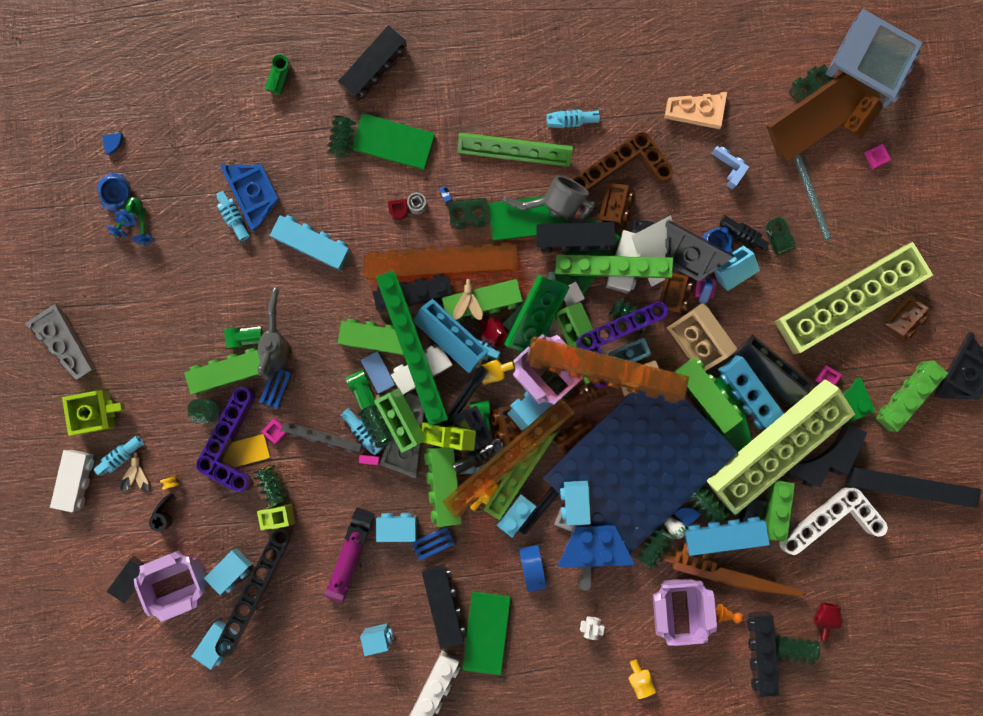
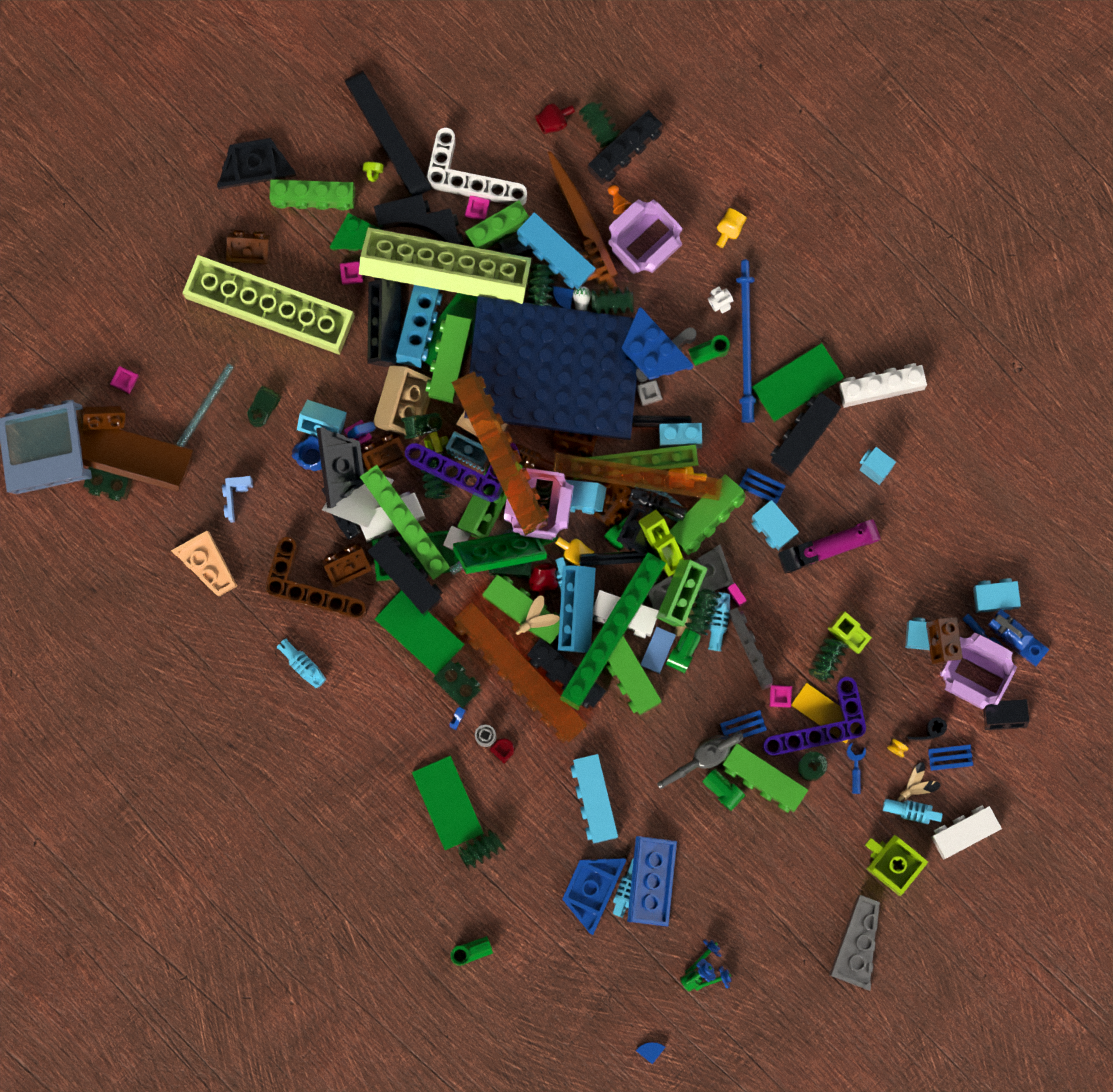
camera: 130 degrees left, 5 degrees down
(113, 191) = (691, 1008): blue hair -> none
(123, 528) = (968, 755): none -> blue tile
(173, 634) = (1018, 637): none -> blue plate
(179, 440) = (856, 772): none -> blue piece
(201, 611) = (978, 629): none -> blue piece
(209, 579) = (944, 640): none -> reddish brown bracket
(221, 235) = (652, 881): none -> blue tile
(245, 598) = (933, 591): black beam -> none
(373, 63) = (394, 874): black brick -> none
(503, 586) = (747, 399): none -> blue bar
(514, 149) = (369, 690): bright green plate -> none
(532, 568) = (712, 386): blue brick -> none
(561, 199) = (382, 611): dark grey piece -> none
(562, 586) = (707, 351): none -> green piece
(576, 503) = (628, 393): medium azure brick -> none
(653, 335) = (435, 443): none -> lime tile
(676, 332) = (418, 424): none -> clear green piece
(744, 233) = (284, 439): black hinge -> none
(804, 507) = (477, 208): none -> dark pink tile
(895, 456) = (373, 167): none -> lime tile

